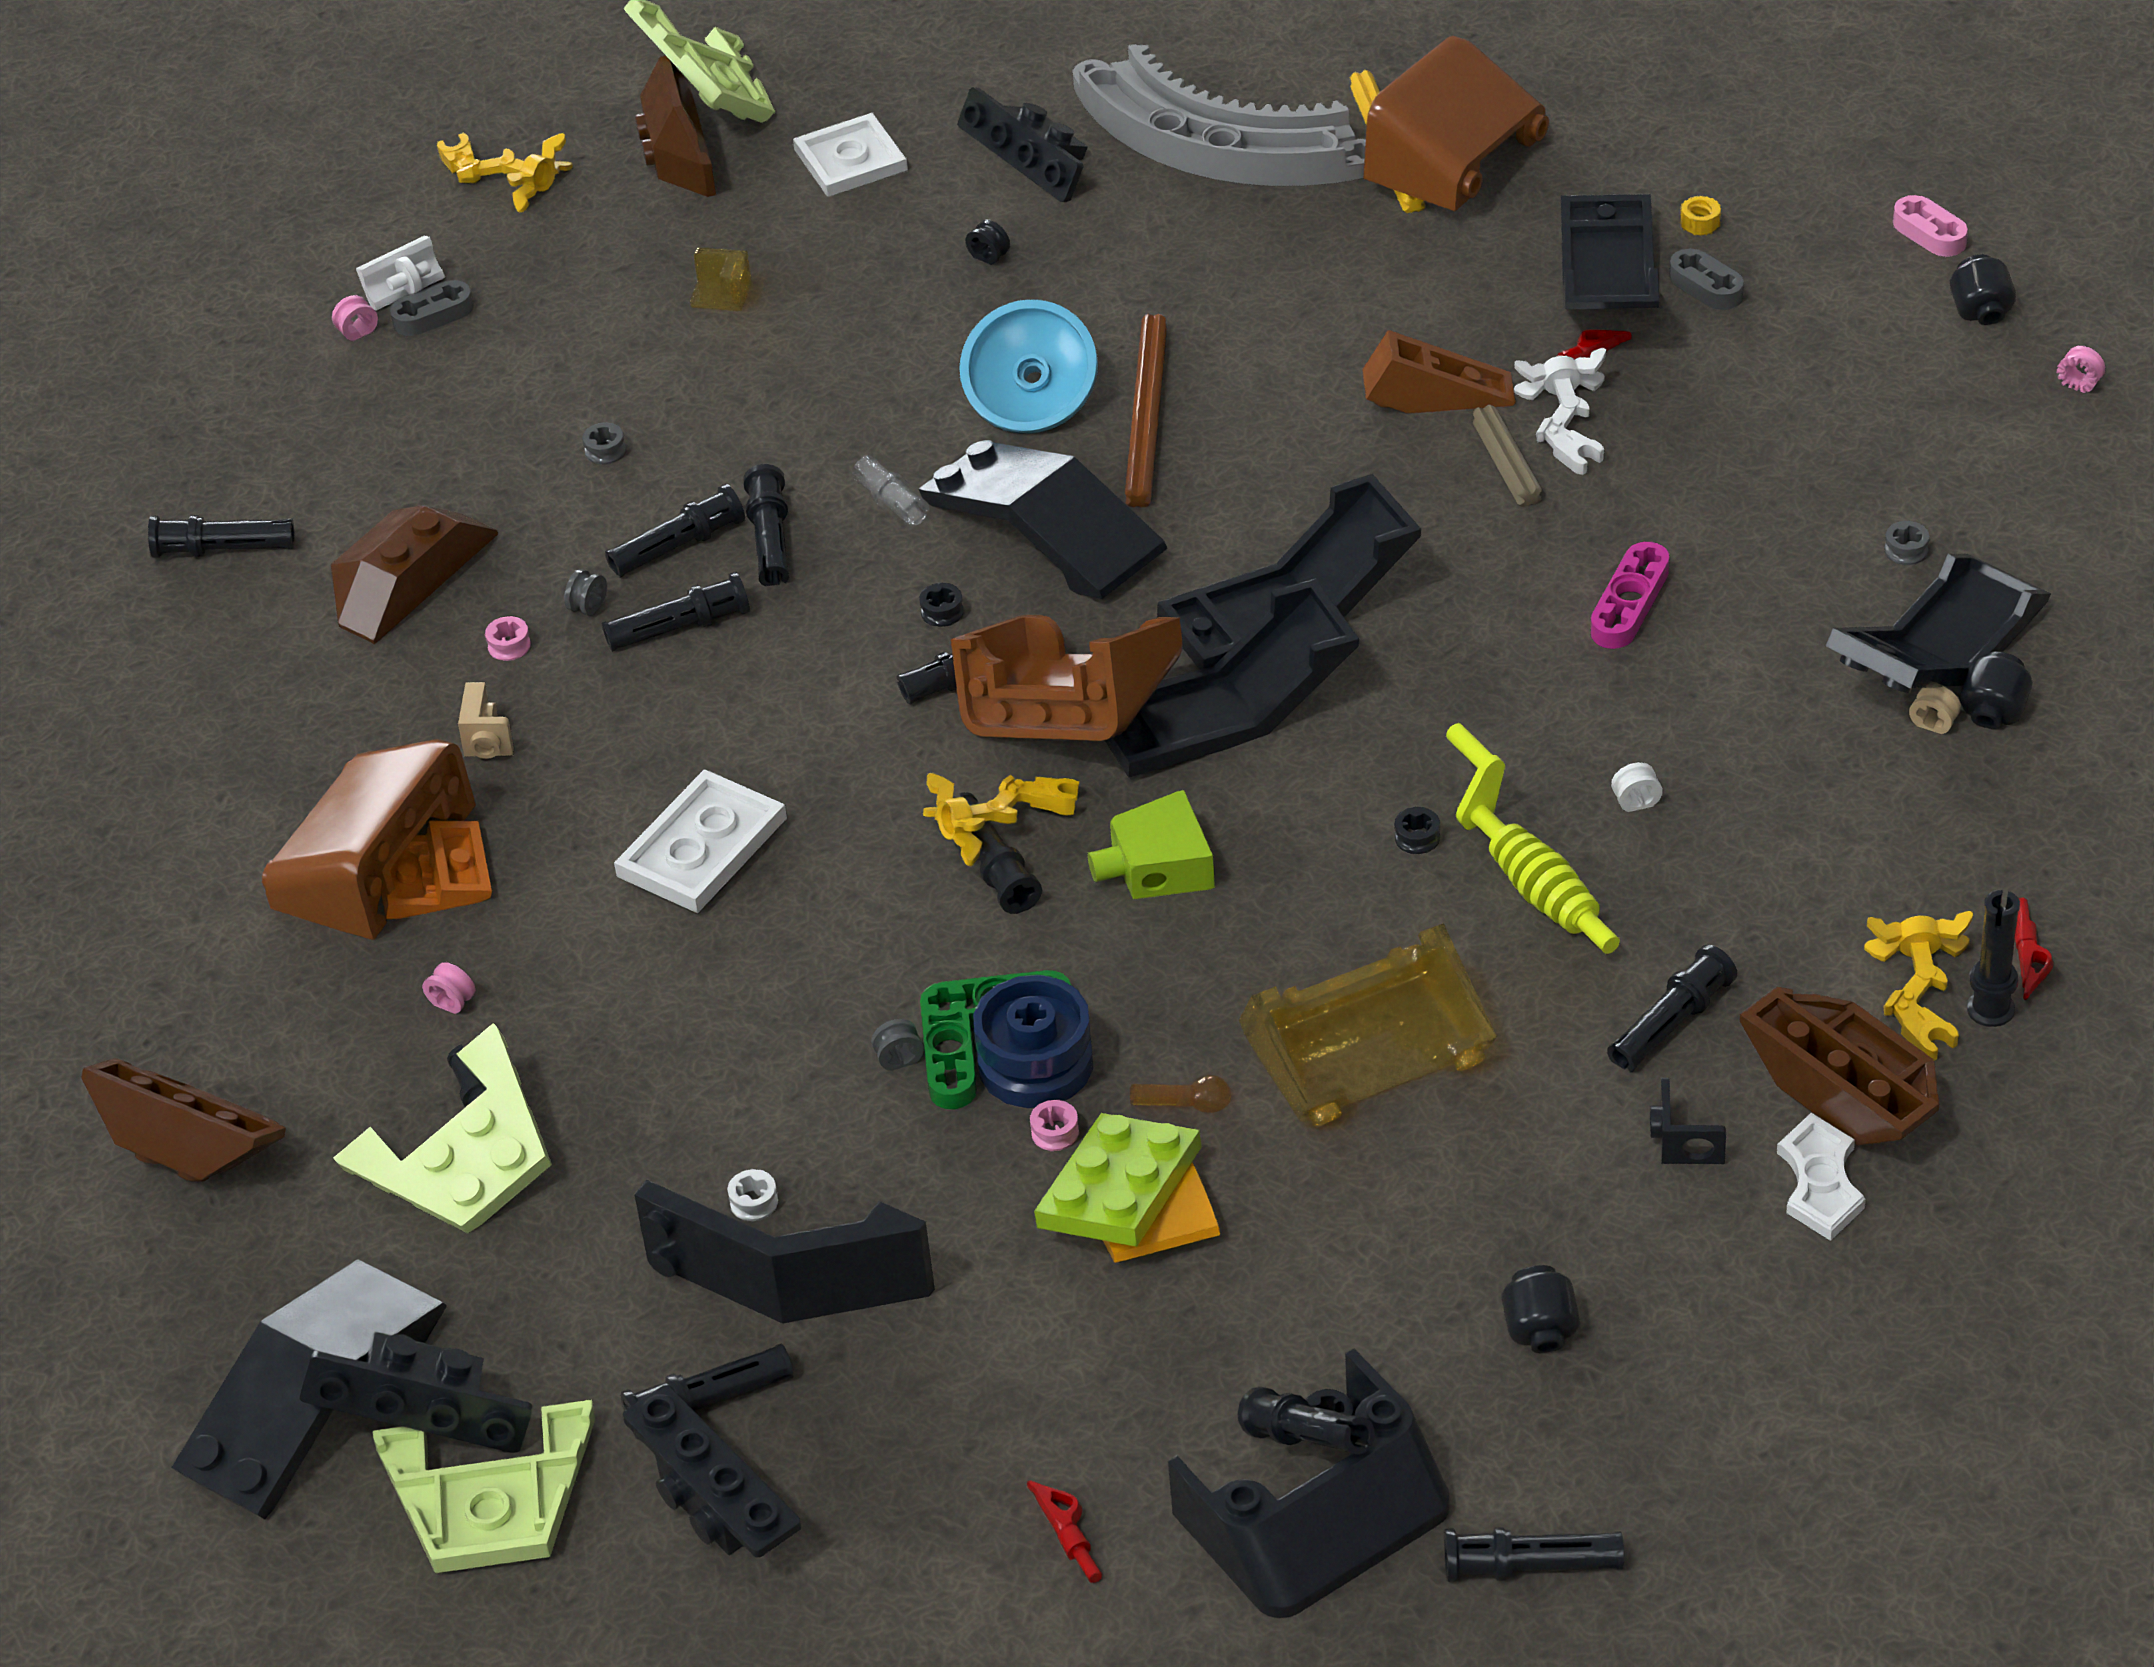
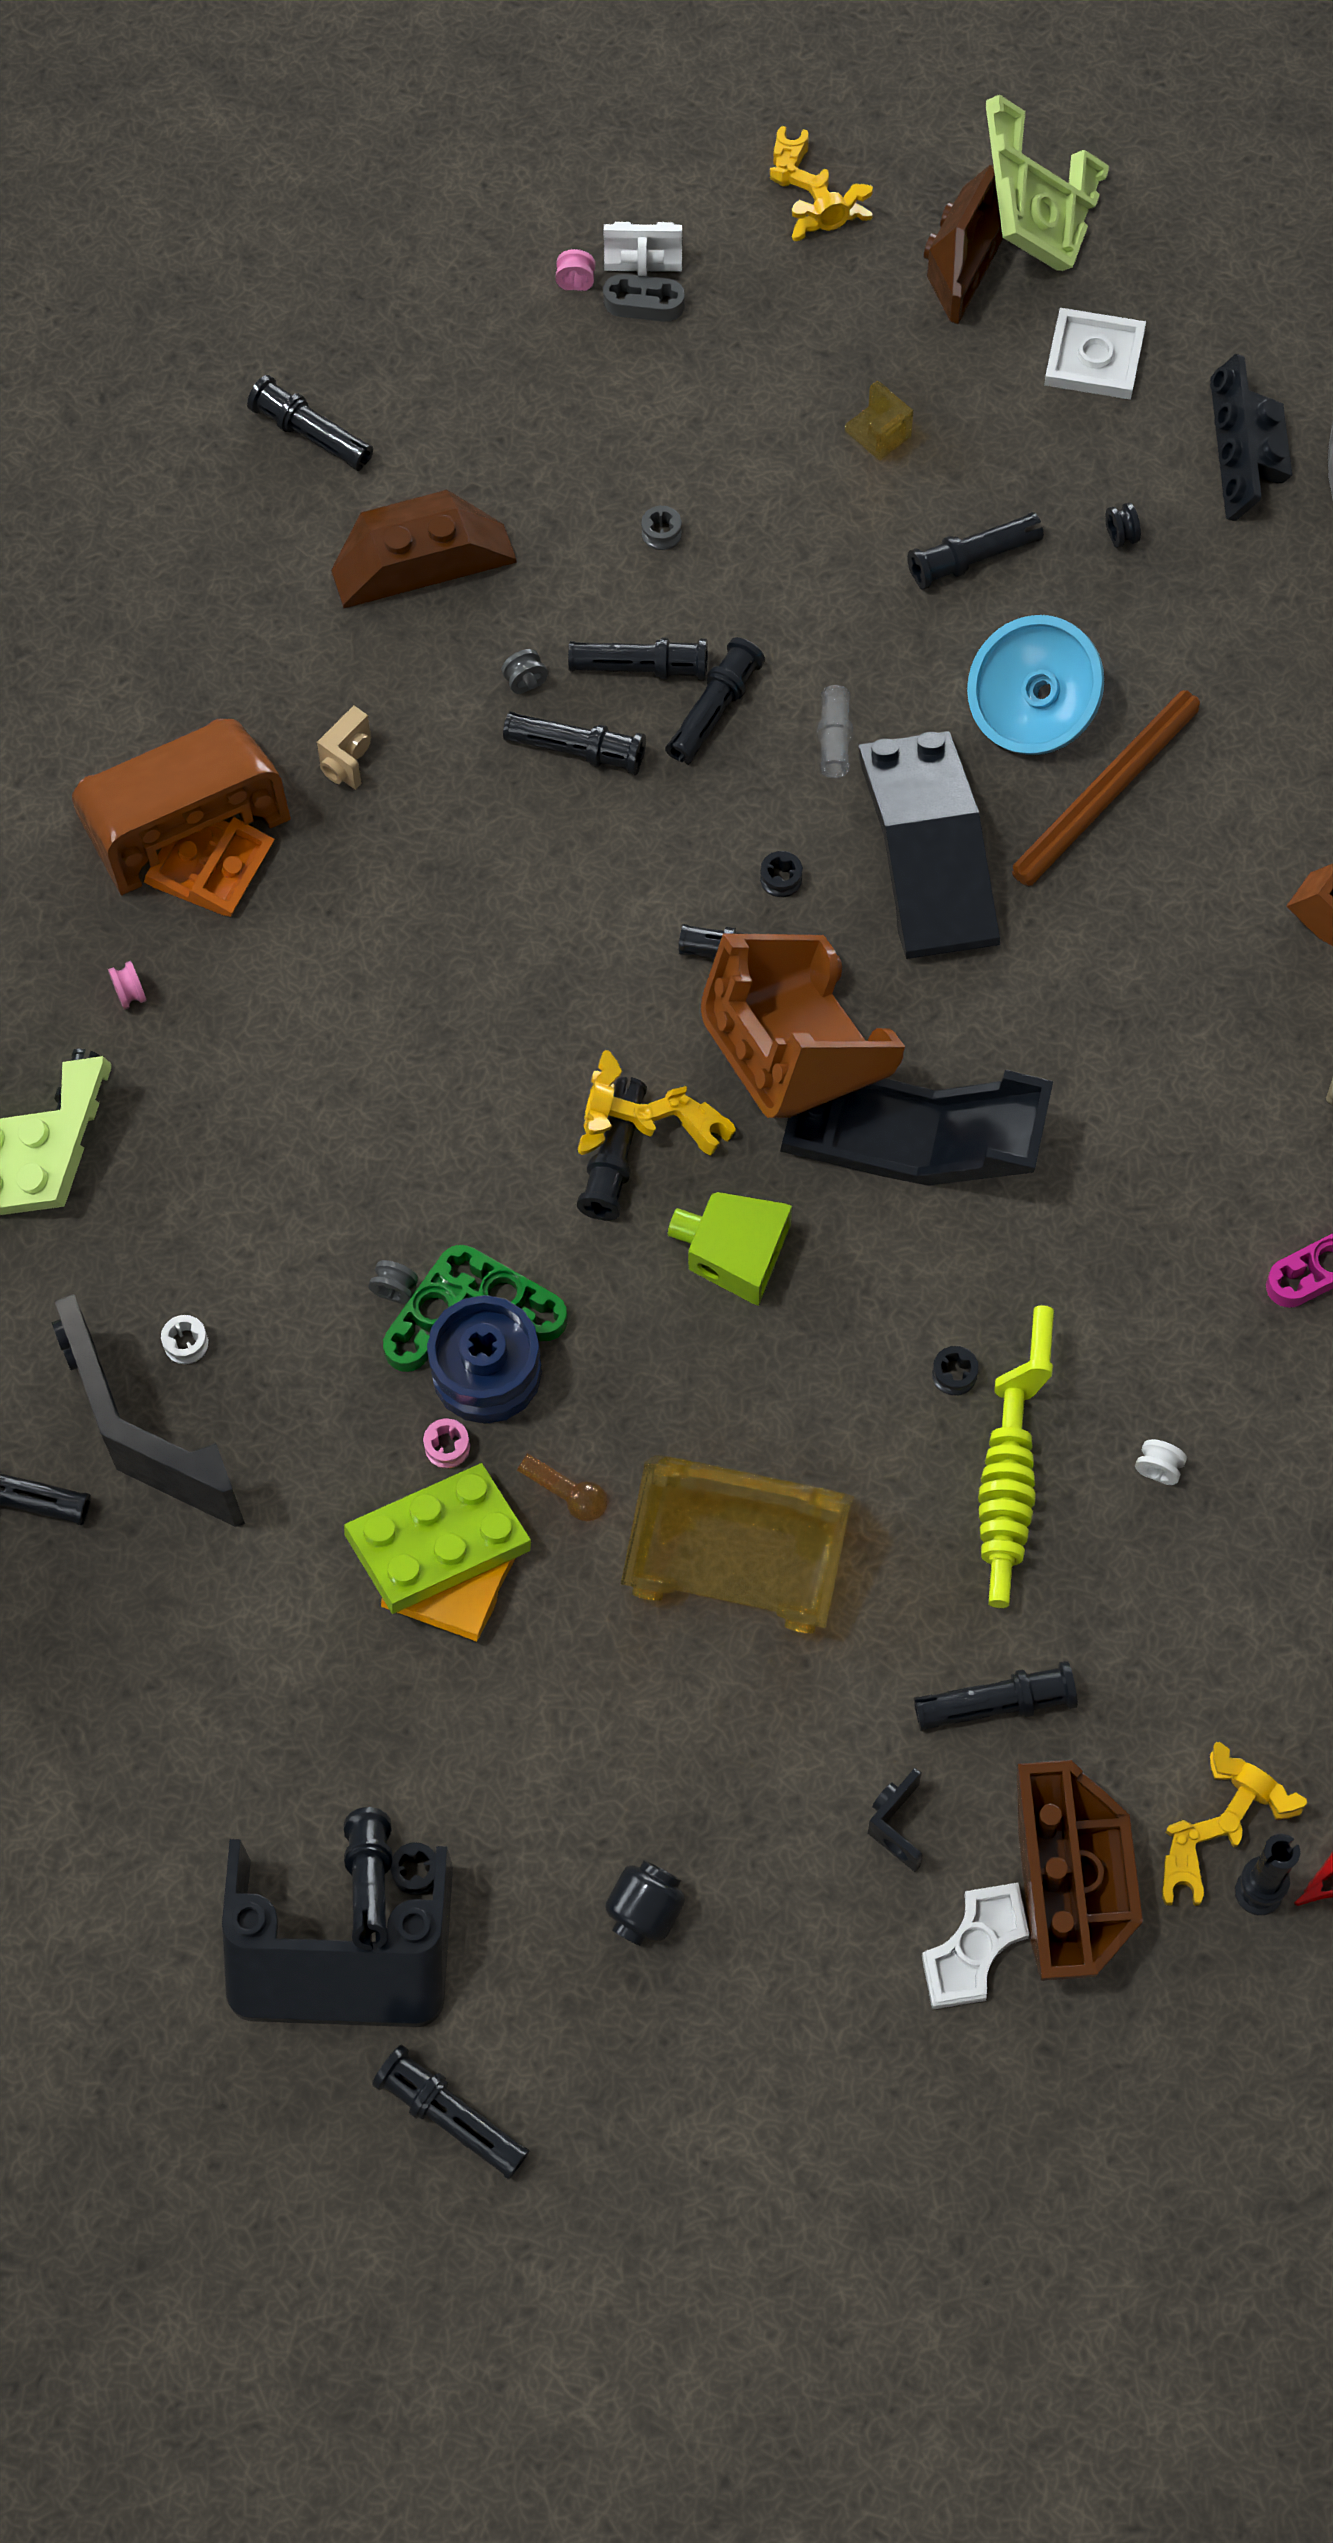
camera: 35 degrees right, 20 degrees up
(510, 649) = (448, 679): bright pink bush -> none
(700, 841) = (414, 977): white plate -> none
(873, 329) = (956, 555): none -> black pin
(1064, 1524) = (150, 1823): red hand -> none
(1342, 550) = (1092, 1061): black windscreen -> none

